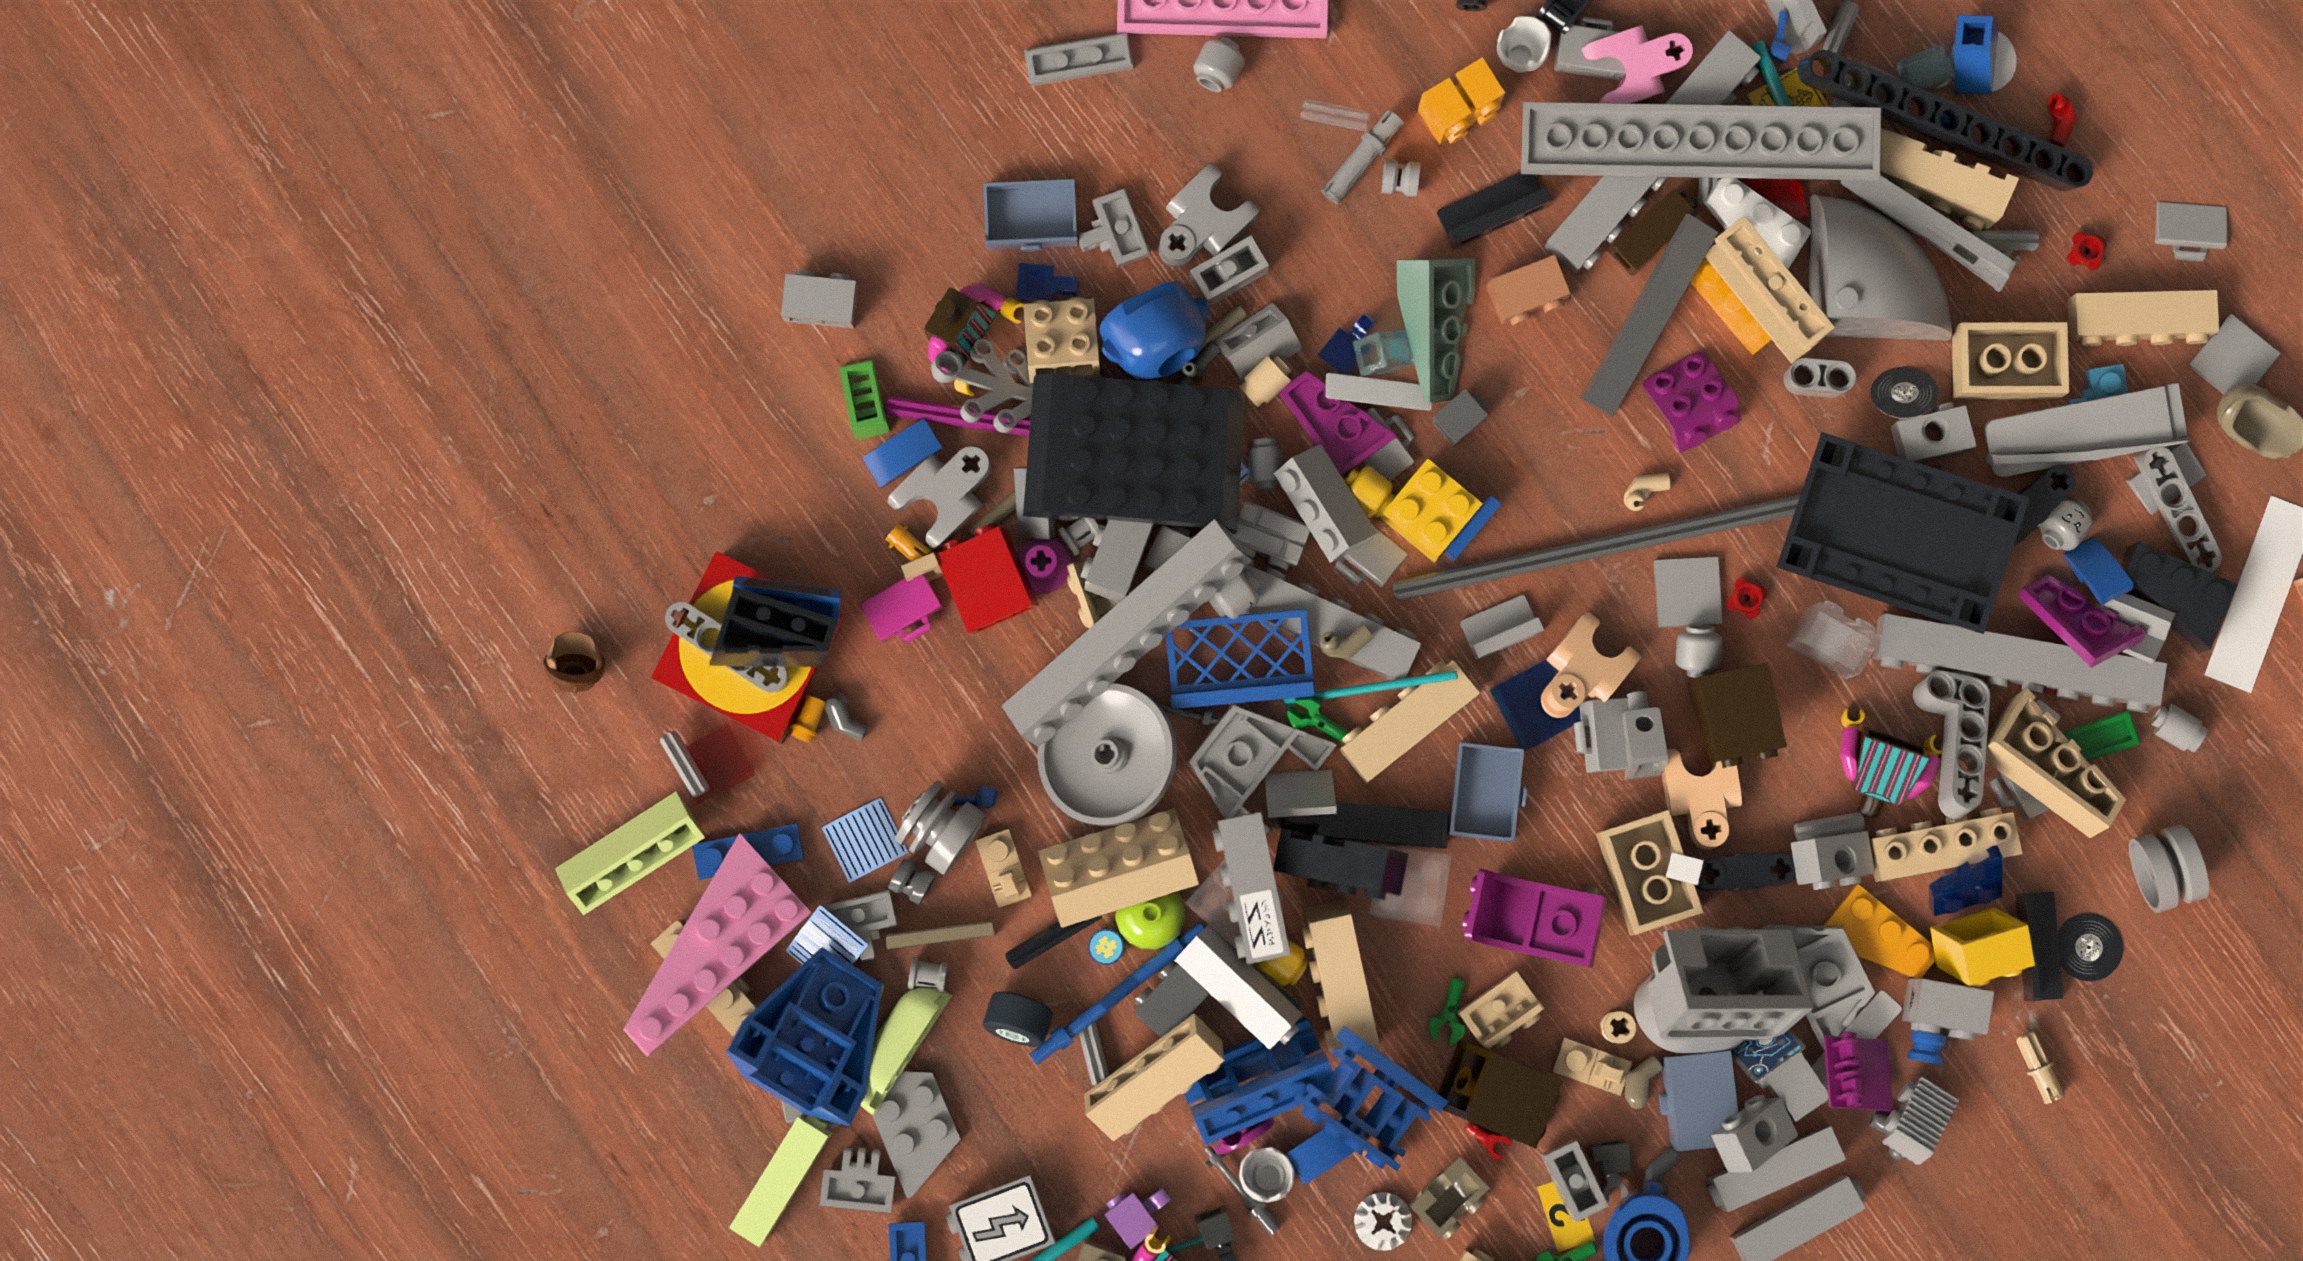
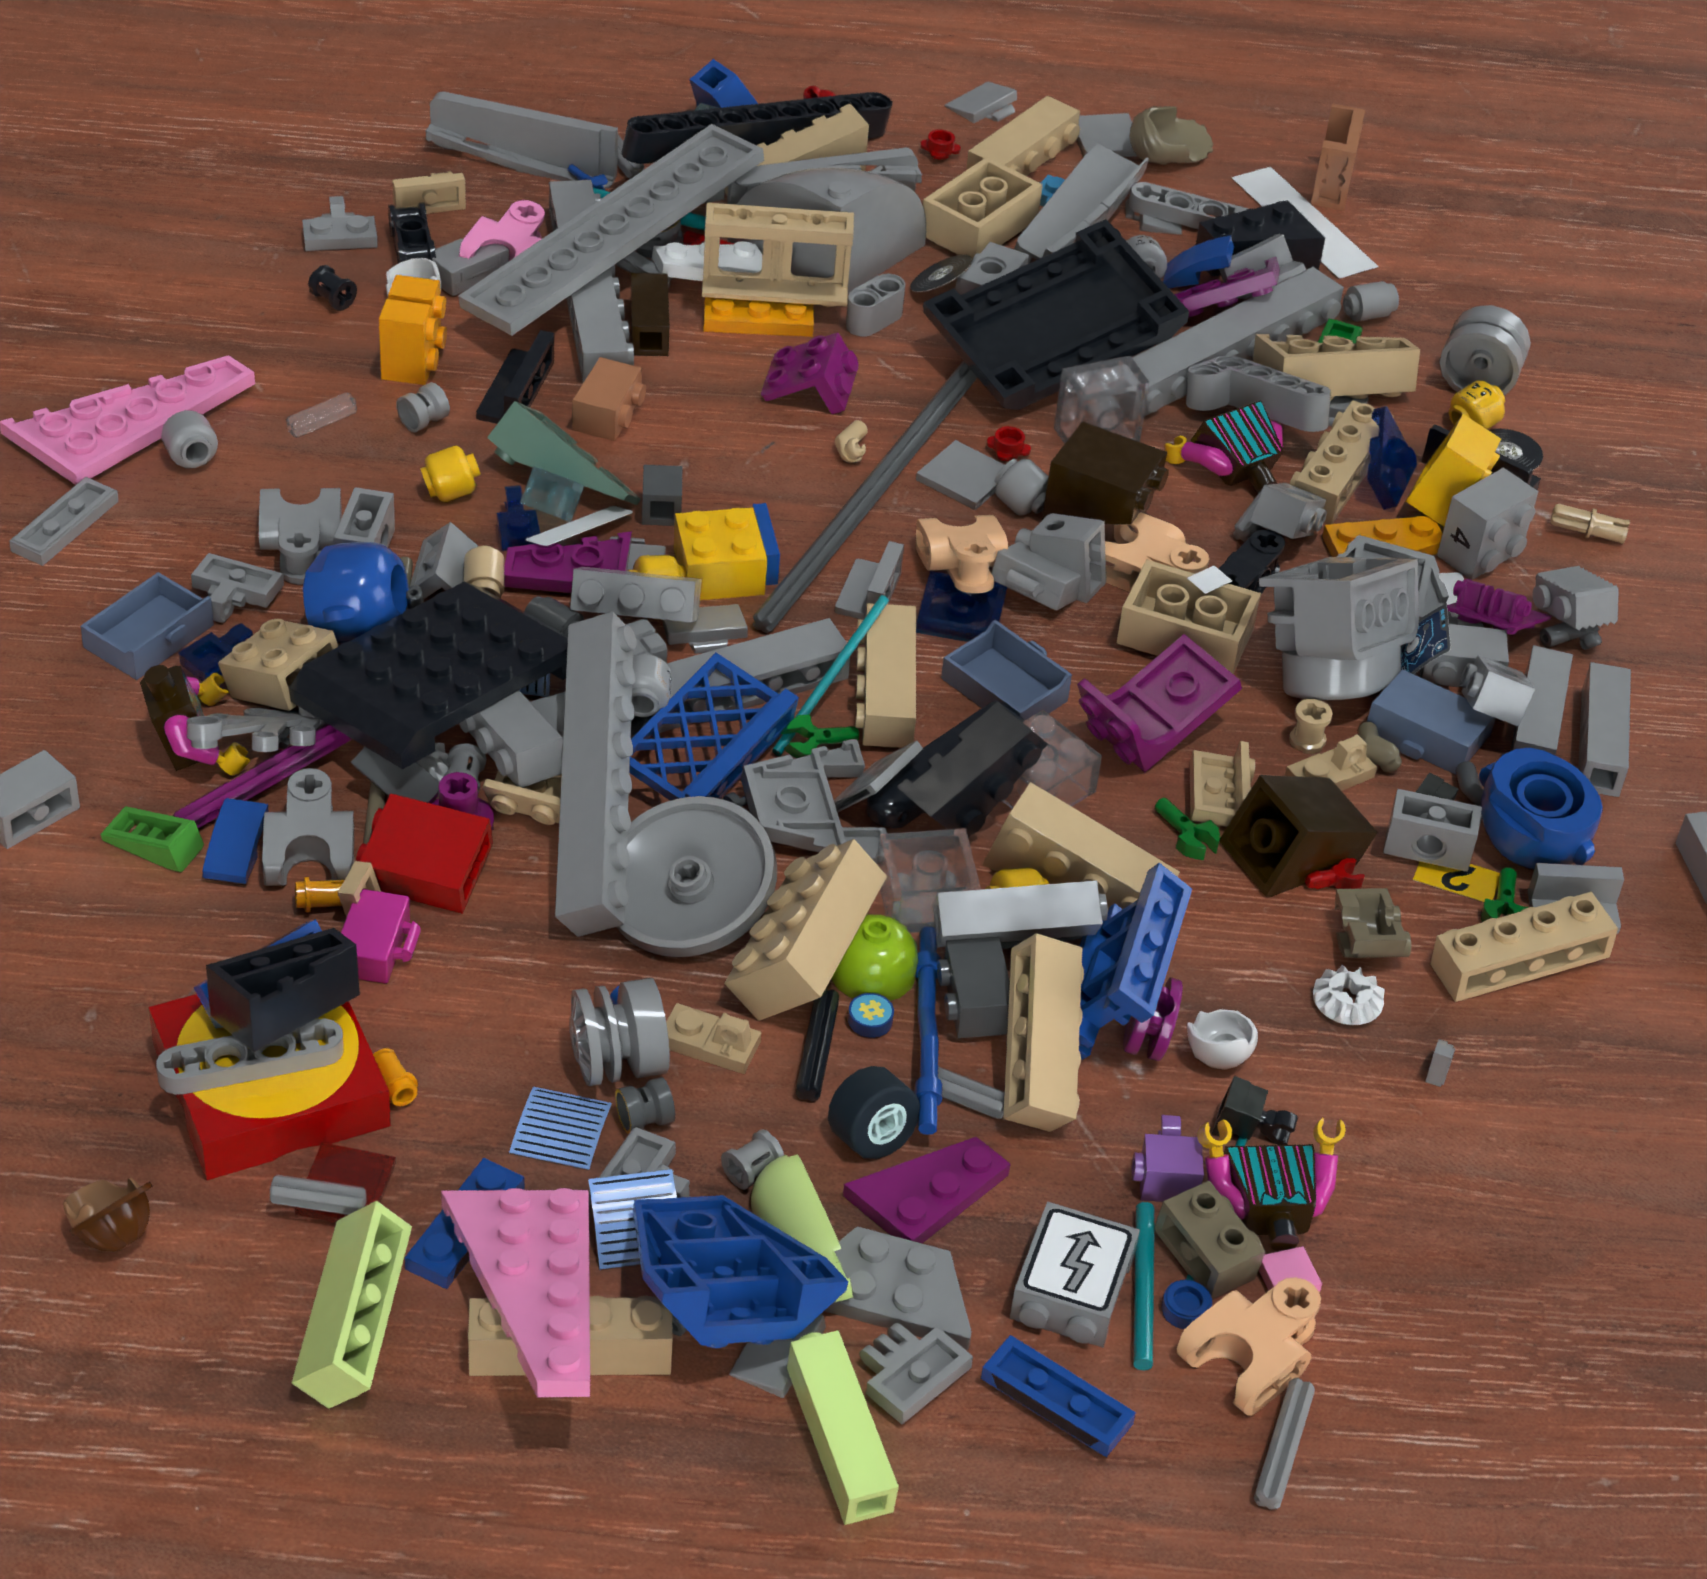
camera: 55 degrees left, 40 degrees down
(840, 719) = (423, 1055): dark grey arm -> none
(939, 935) = (723, 1120): dark tan tile -> none
(998, 1089) = (928, 1191): none -> magenta wing
(1253, 888) = (934, 829): light grey brick -> none
(1255, 1207) = (1249, 1071): dark grey piece -> none
(1318, 1154) = (1237, 982): blue slope -> none
(1344, 646) = (775, 657): dark tan arm -> none
(1347, 262) = (450, 473): none -> yellow head
(1357, 163) = (376, 411): light grey pin -> none
(1387, 1117) = (1222, 885): blue fence -> none
(1649, 315) = (714, 349): dark grey tile -> none
(1927, 1047) = (1511, 567): blue wheel -> none
(2106, 899) = (1480, 403): none -> yellow head

